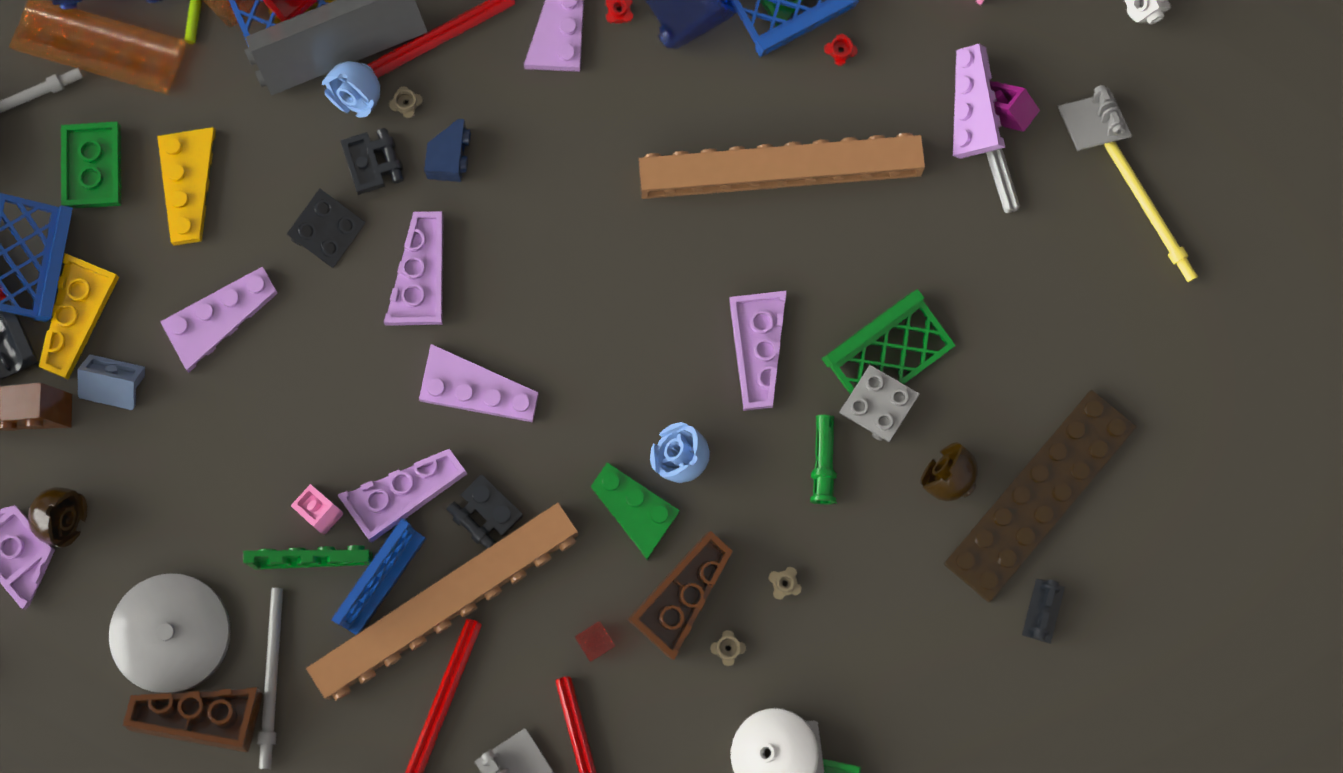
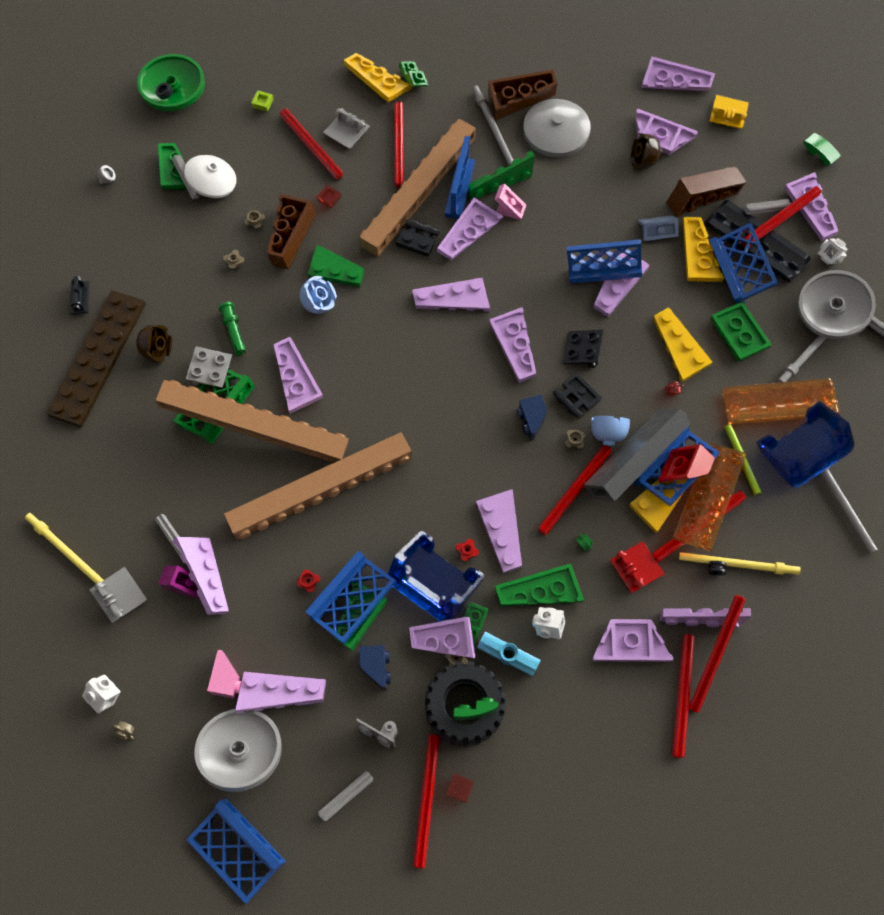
camera: 160 degrees right, 10 degrees down
(230, 332) = (605, 269): none -> blue fence
(233, 117) = (674, 388): none -> clear red plate
(846, 279) = (251, 421): none -> medium nougat brick

